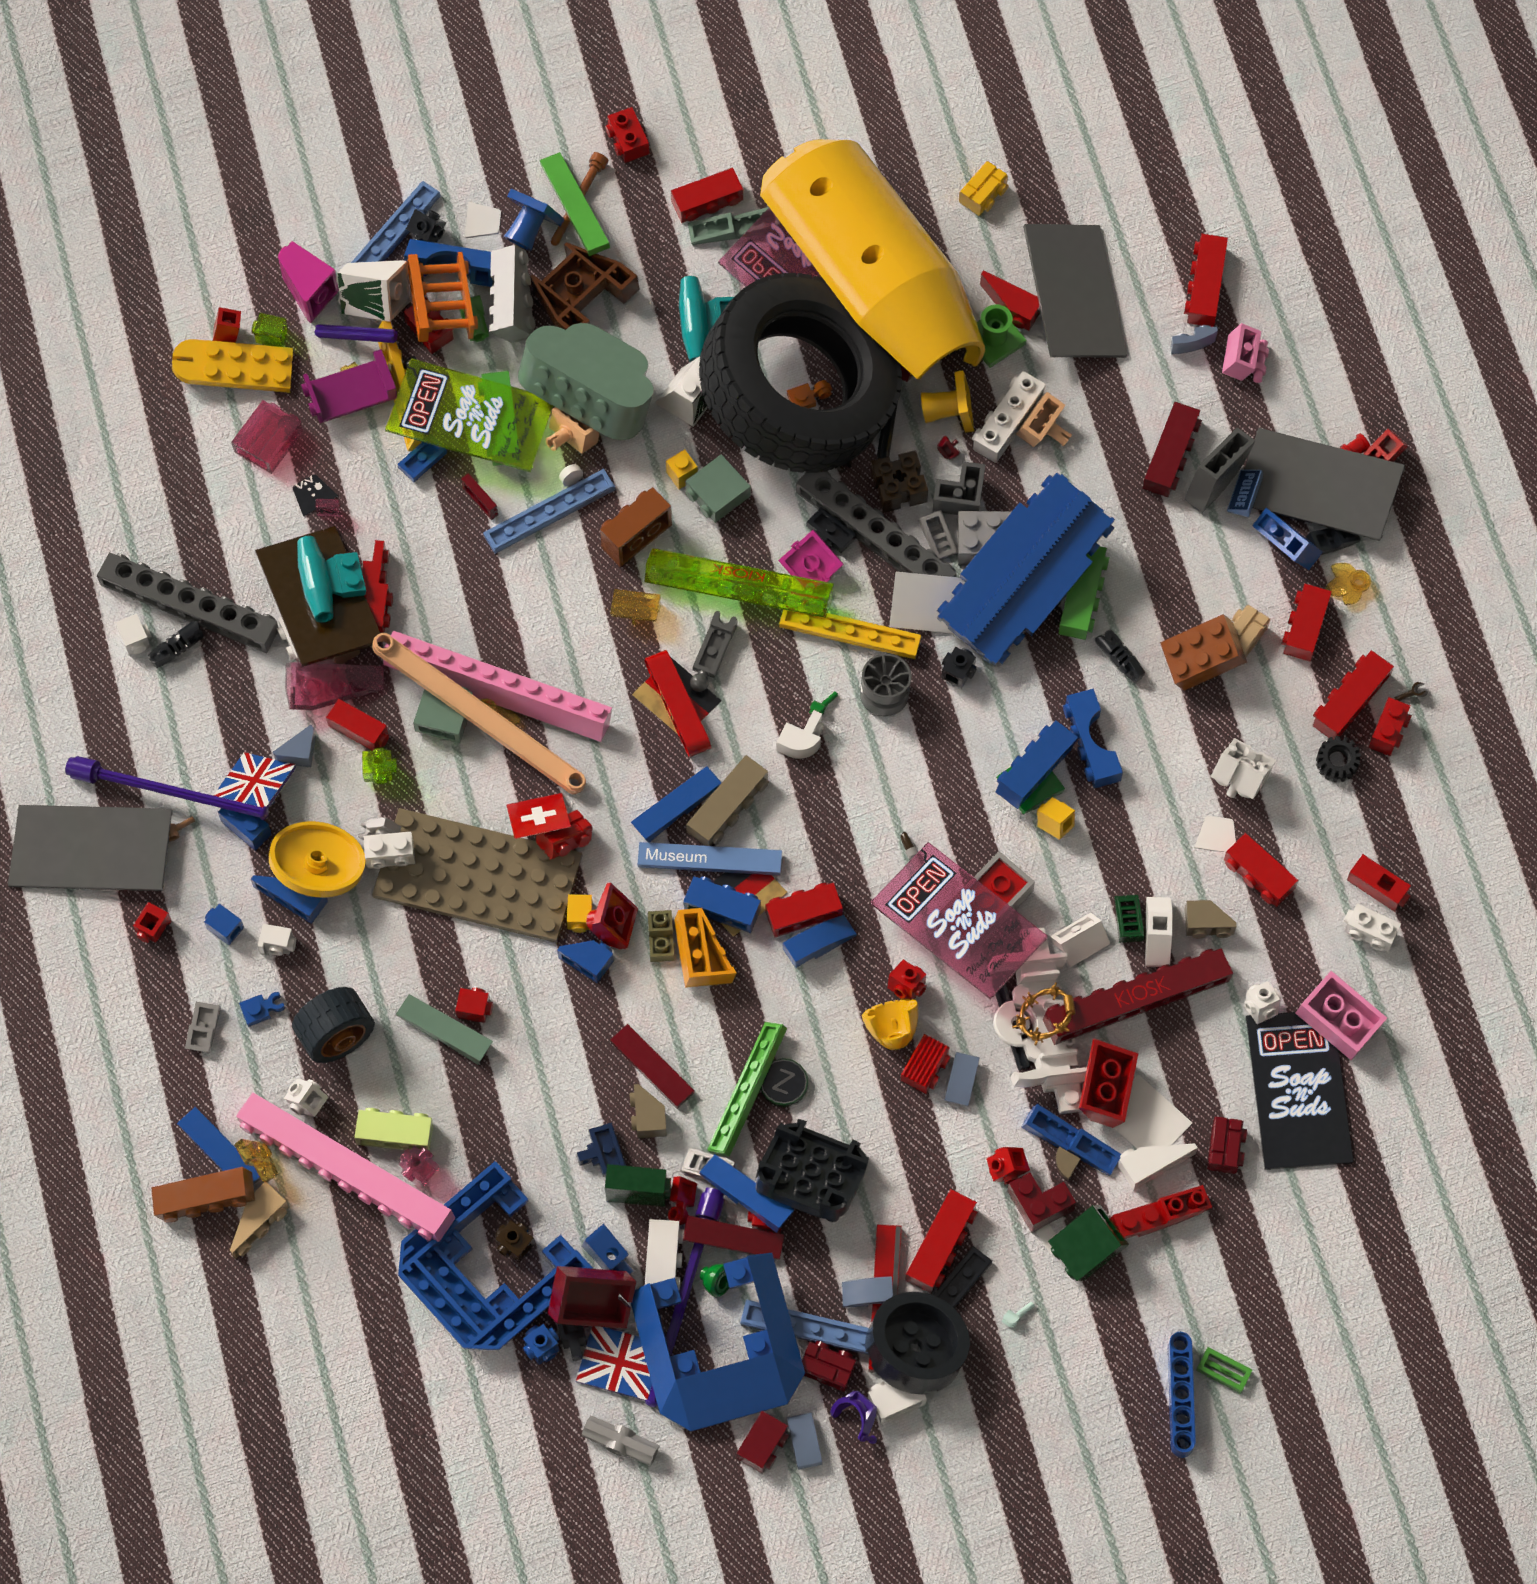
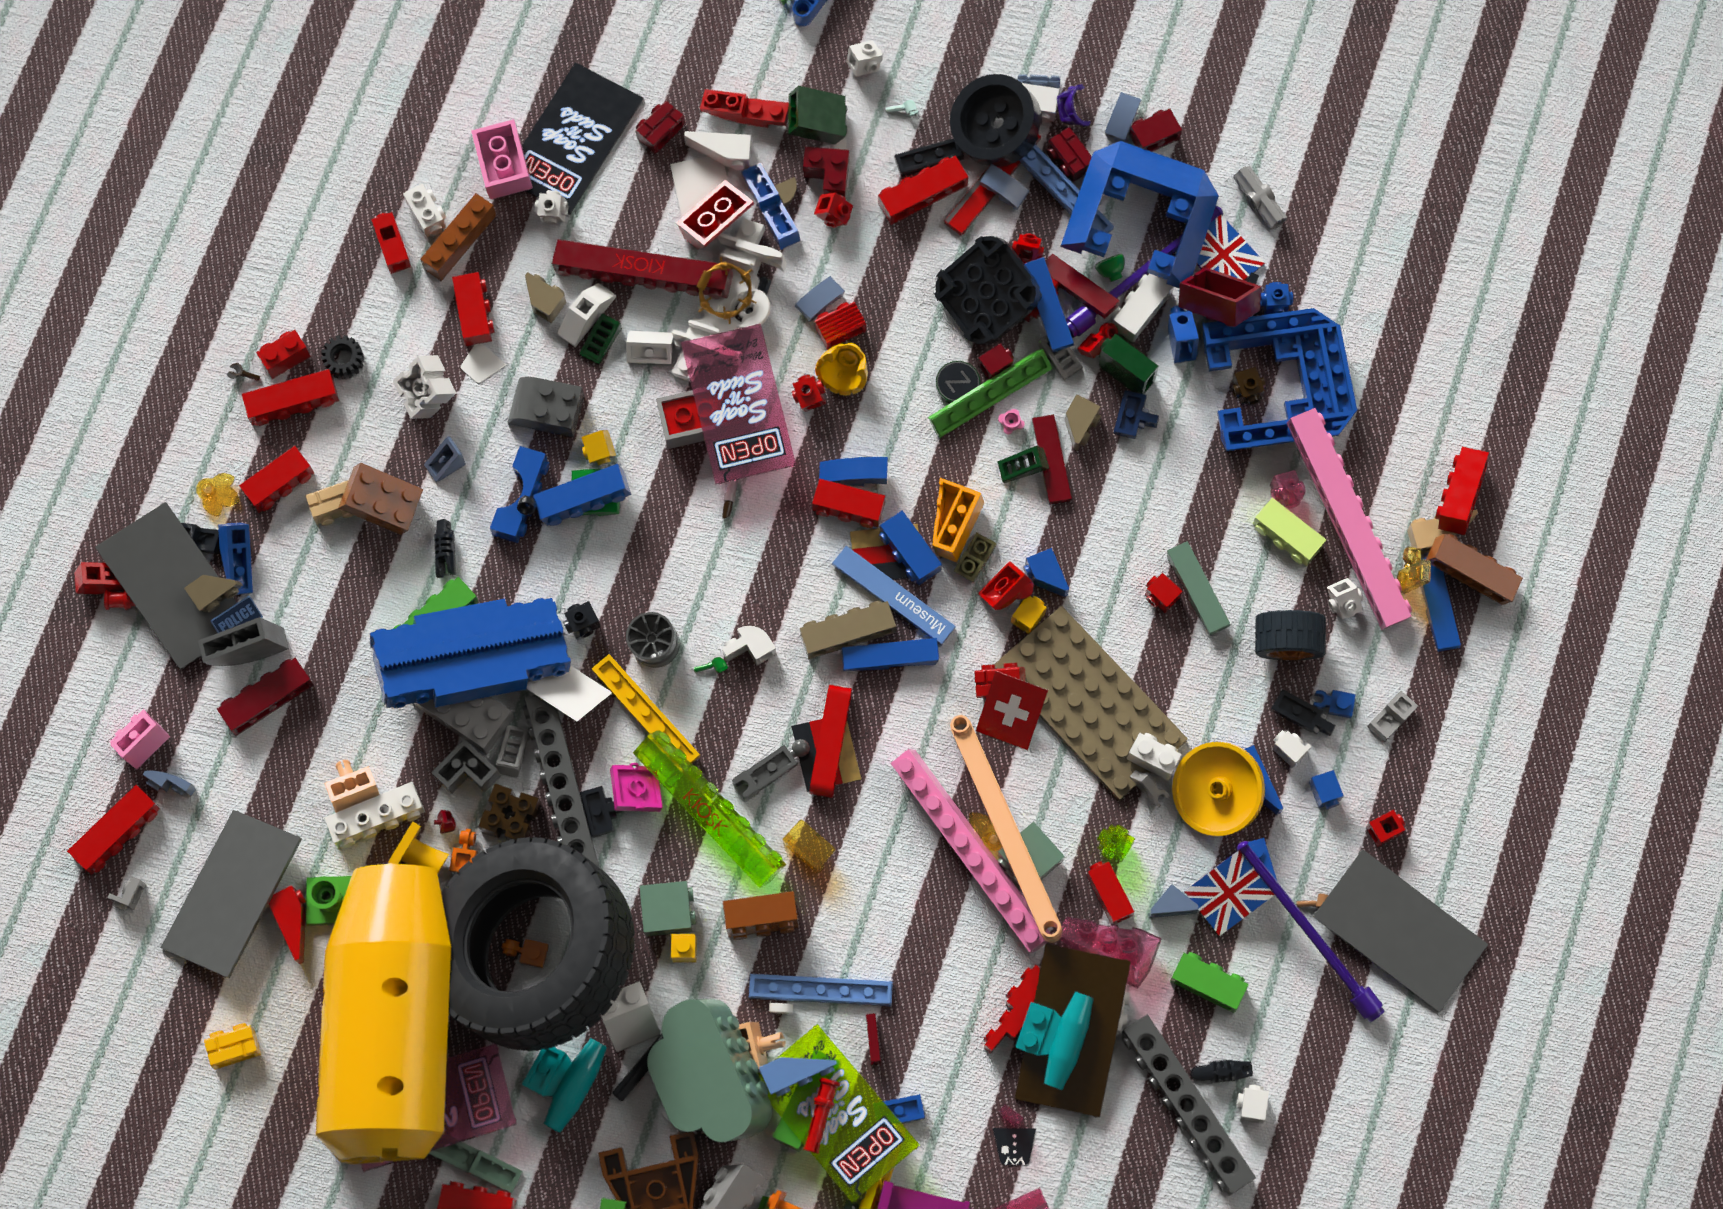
camera: 145 degrees left, 5 degrees up
(228, 706) = (1209, 982): none -> bright green brick
(255, 1260) = (1462, 491): none -> red brick
(284, 977) = (1302, 713): none -> black hinge
(481, 409) = (823, 1103): none -> red pin
(525, 416) = (789, 1071): none -> medium blue slope
(653, 359) = (634, 1075): none -> black axle
(663, 1052) = (1034, 467): none -> dark green slope
(710, 1070) = (1011, 415): none -> bright pink plate
(760, 1119) = (995, 361): none -> dark red brick
(802, 1240) = (1028, 247): none -> red brick
(909, 1425) = (1040, 80): none -> sand blue axle
(913, 429) = (462, 855): none -> orange plate
(1075, 722) = (526, 510): none -> black hinge
(1081, 1326) = (864, 58): none -> white brick
(1128, 826) = (546, 406): none -> dark grey brick
(1153, 241) = (131, 894): none -> light grey bracket
(1178, 729) = (445, 460): none -> sand blue slope
(1281, 493) = (209, 591): none -> dark tan slope
(1323, 924) = (458, 237): none -> dark orange brick

